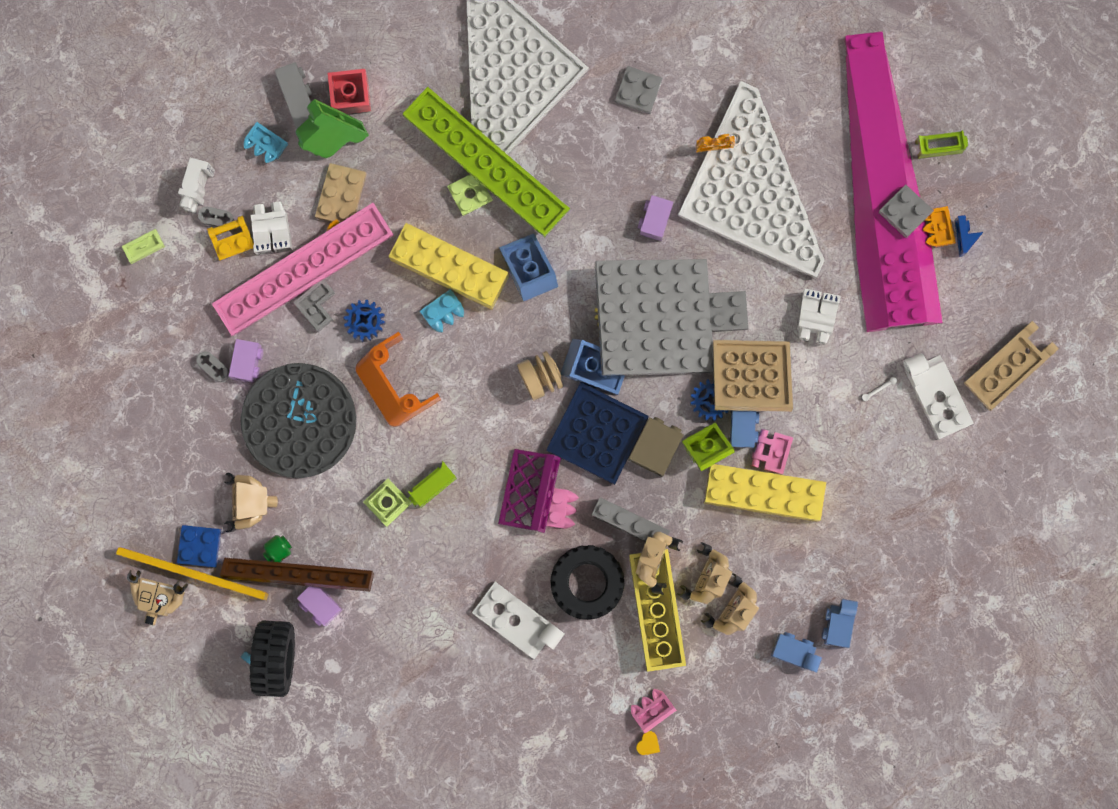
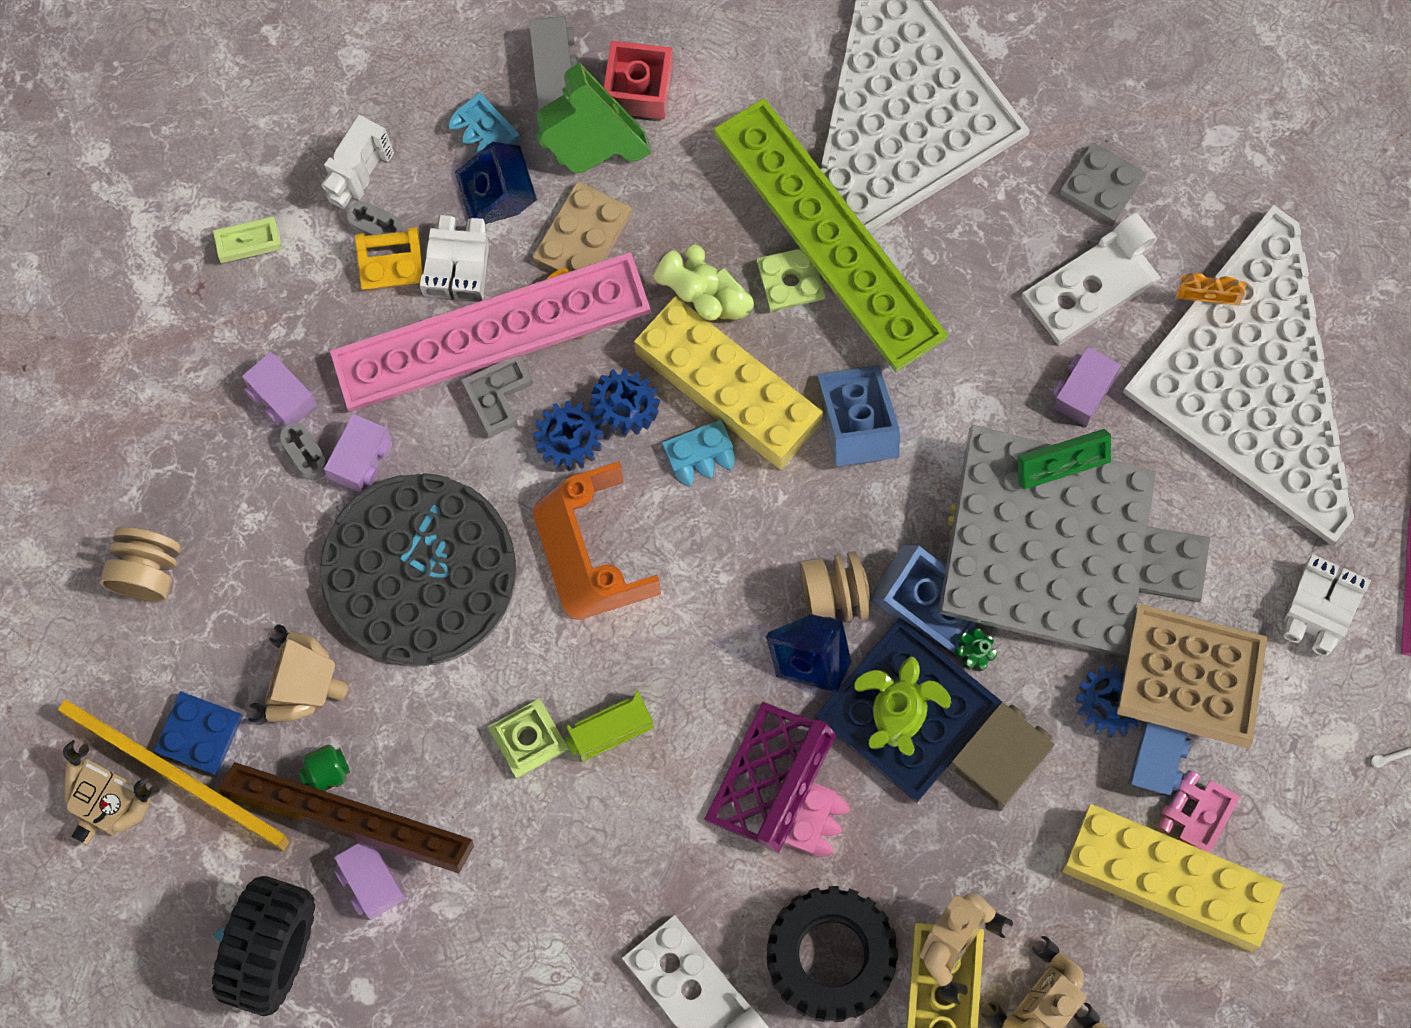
camera: 15 degrees right, 10 degrees down
(138, 458) = (142, 559): none -> tan wheel
(188, 334) = (278, 390): none -> lavender brick
(281, 176) = (496, 183): none -> clear blue slope
(392, 288) = (624, 402): none -> blue gear
(420, 212) = (710, 289): none -> yellowish green animal
(535, 415) = (811, 652): none -> clear blue slope
(593, 433) = (901, 704): none -> lime animal
(626, 520) = (920, 864): light grey brick -> none
(627, 388) = (975, 649): none -> green plant
(653, 268) = (1064, 459): none -> green plate
(655, 138) = (1113, 263): none -> white hinge
(708, 446) = (1091, 774): lime plate -> none

